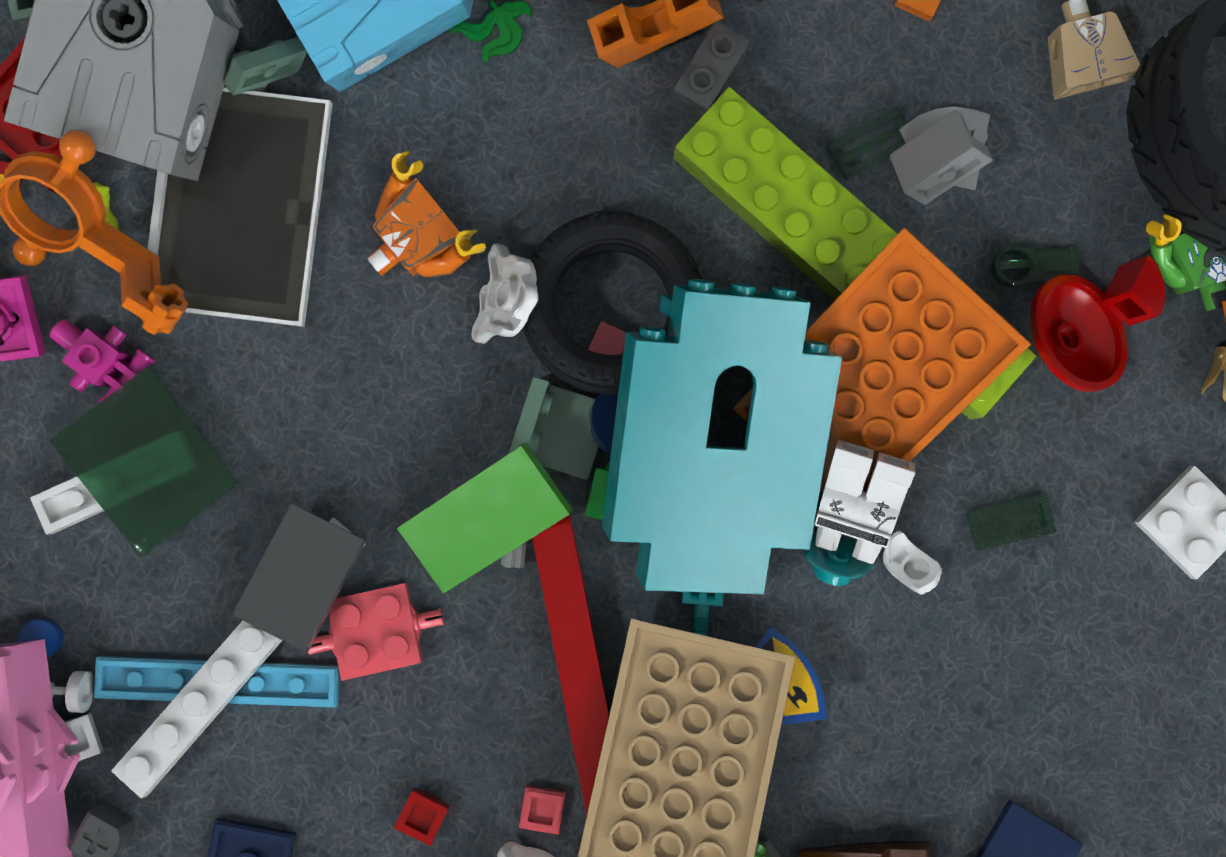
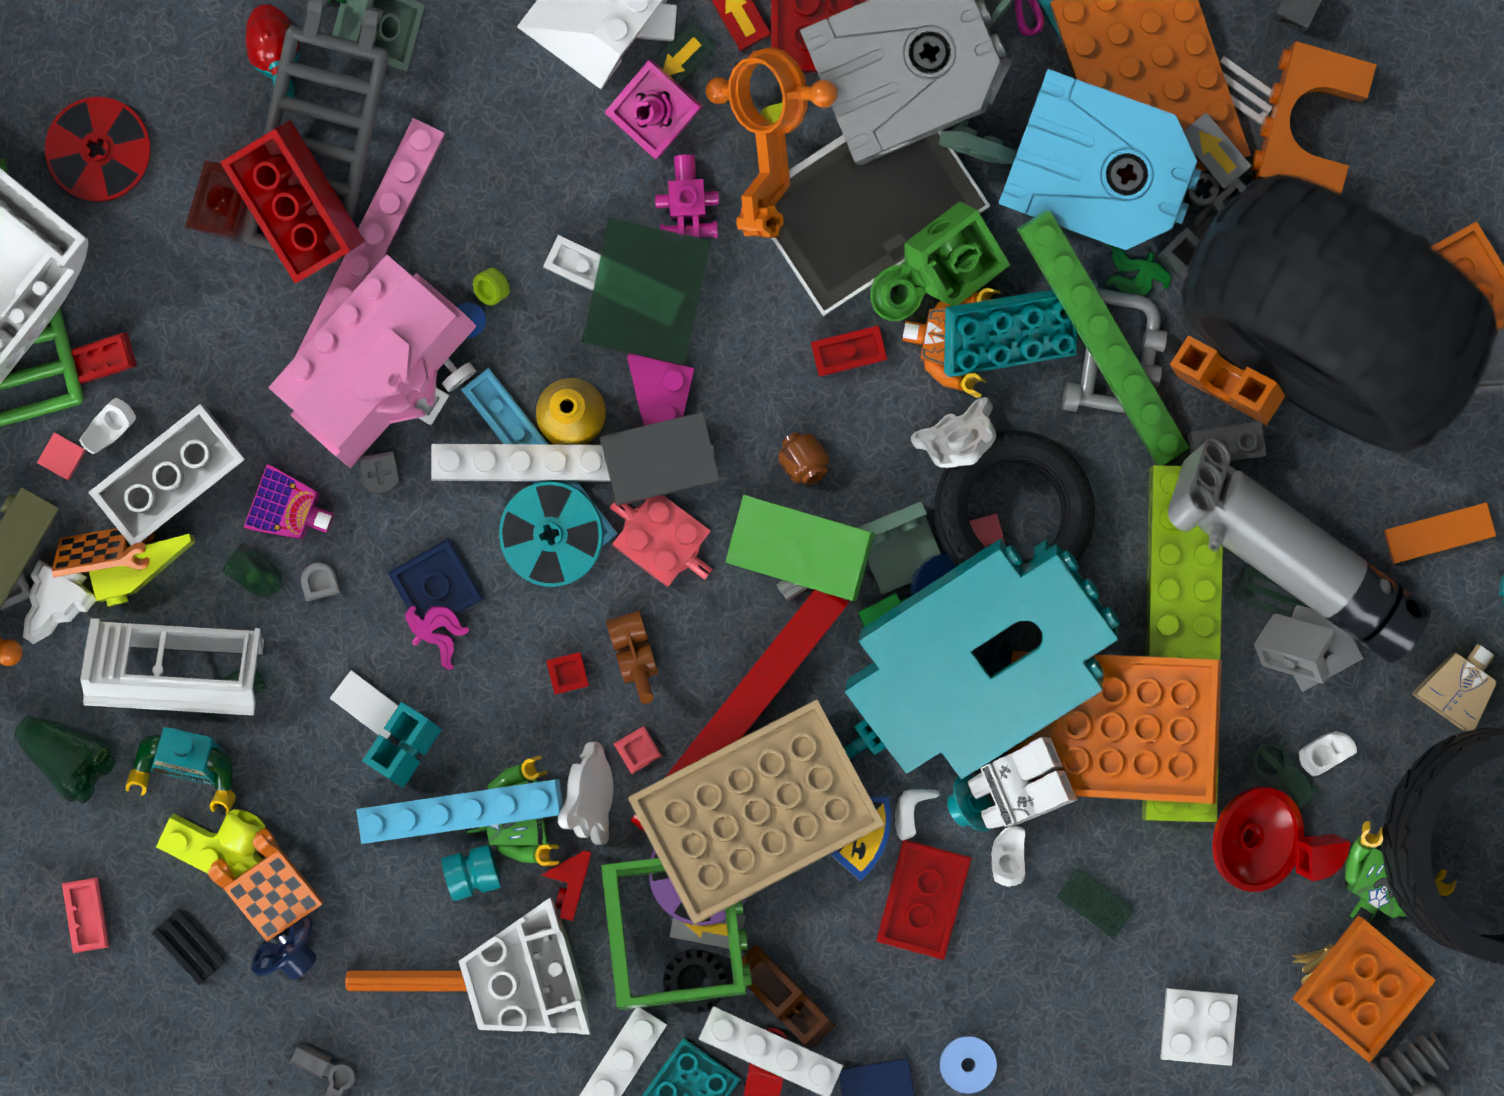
camera: 50 degrees right, 0 degrees up
(26, 594) = (491, 286): none -> lime tile
(193, 618) = (581, 423): none -> yellow cone
(241, 520) = (660, 388): none -> dark pink wing
(257, 726) = (575, 546): none -> teal piece
(340, 179) = (943, 259): none -> bright green brick
(351, 329) = (848, 351): none -> red plate
(410, 448) = (804, 458): none -> dark orange head
(449, 171) = (1006, 333): none -> teal tile
(460, 745) = (633, 652): none -> dark orange beam
(520, 93) = (1102, 338): none -> bright green plate
(566, 61) = (1153, 341): none -> light grey bar
(791, 618) = (905, 810): none -> white hair
(861, 82) = (1295, 553): none -> light grey piece
(883, 668) = (923, 899): none -> red tile
(1047, 210) = (1326, 752): none -> white hair
(1078, 756) = (979, 1076): none -> light blue piece

